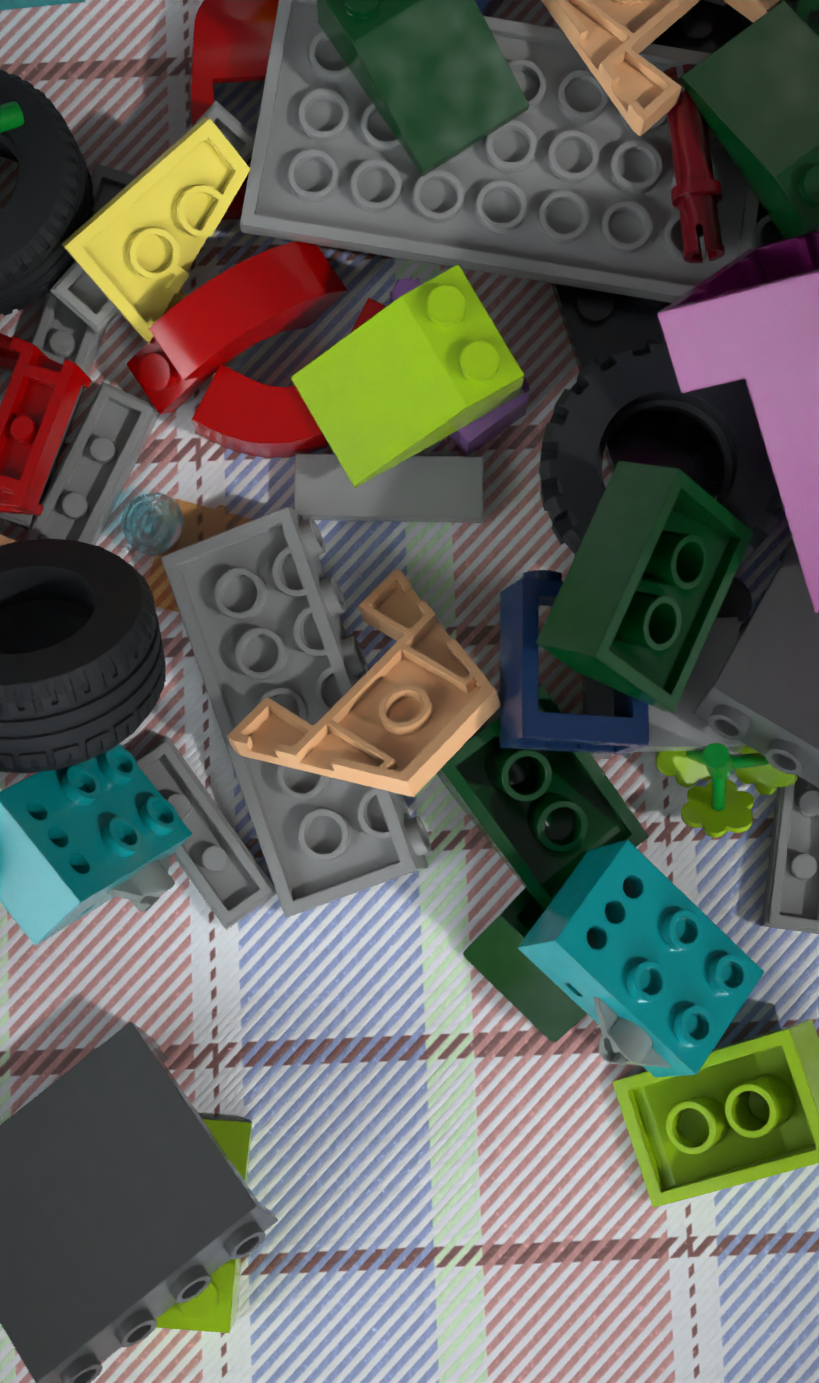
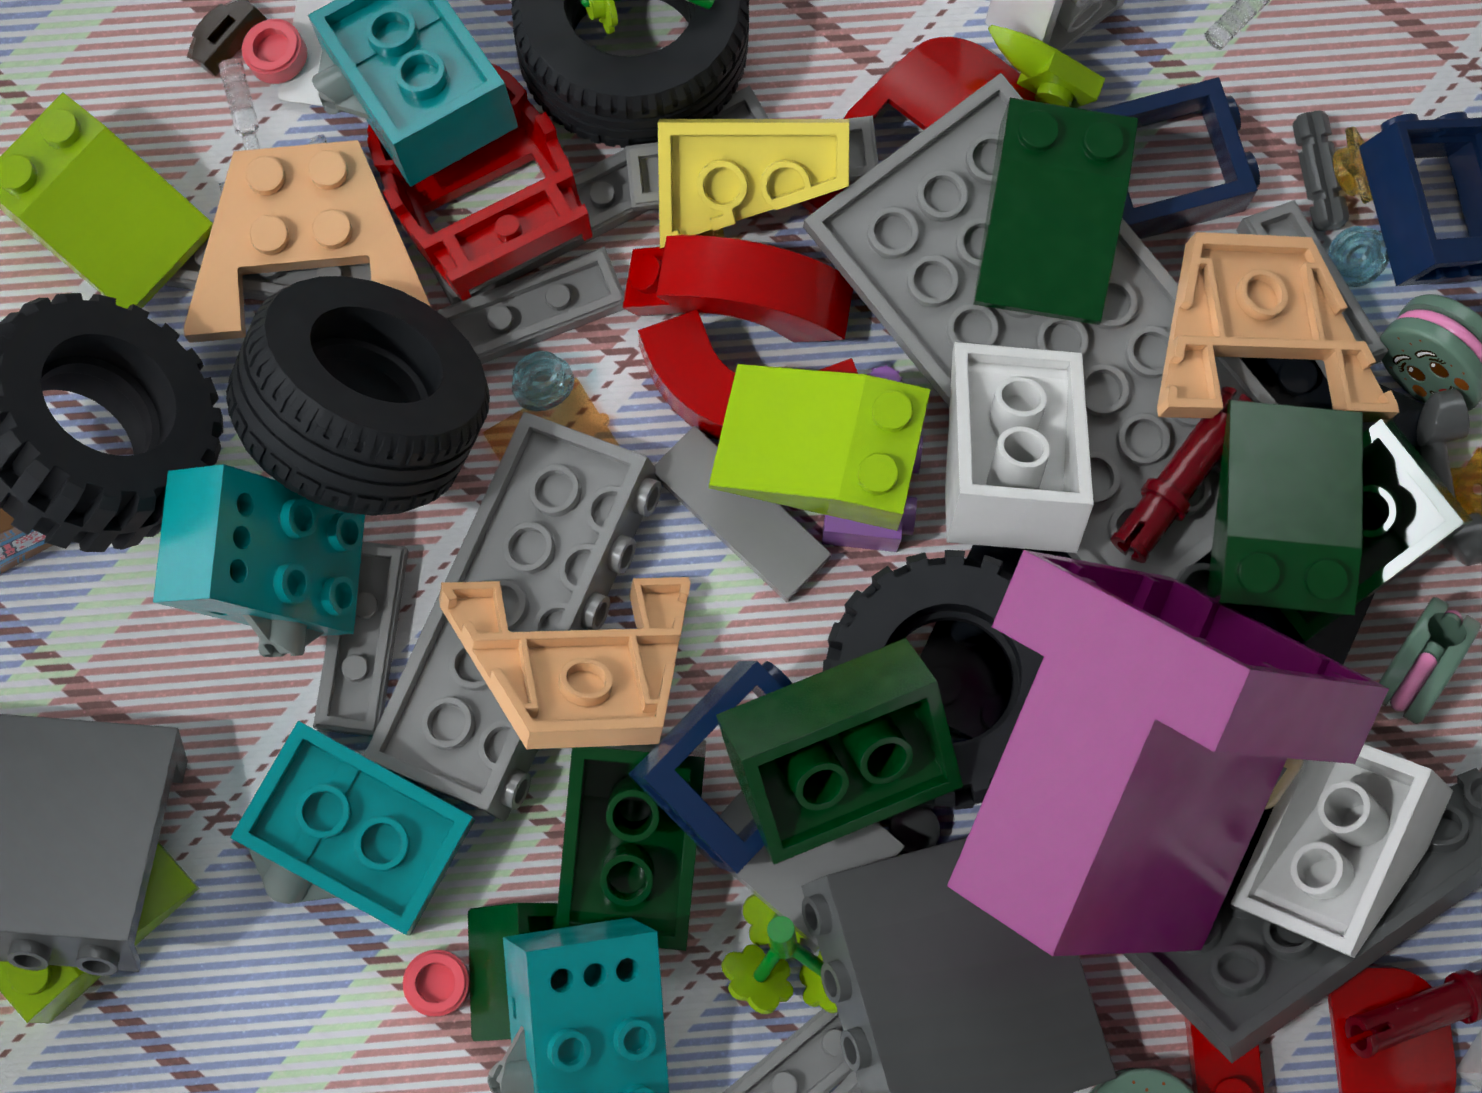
camera: 40 degrees right, 5 degrees down
(328, 977) = (349, 832): none -> teal piece
(490, 1026) = (436, 983): none -> coral tile
(558, 252) = (1017, 449): none -> white slope

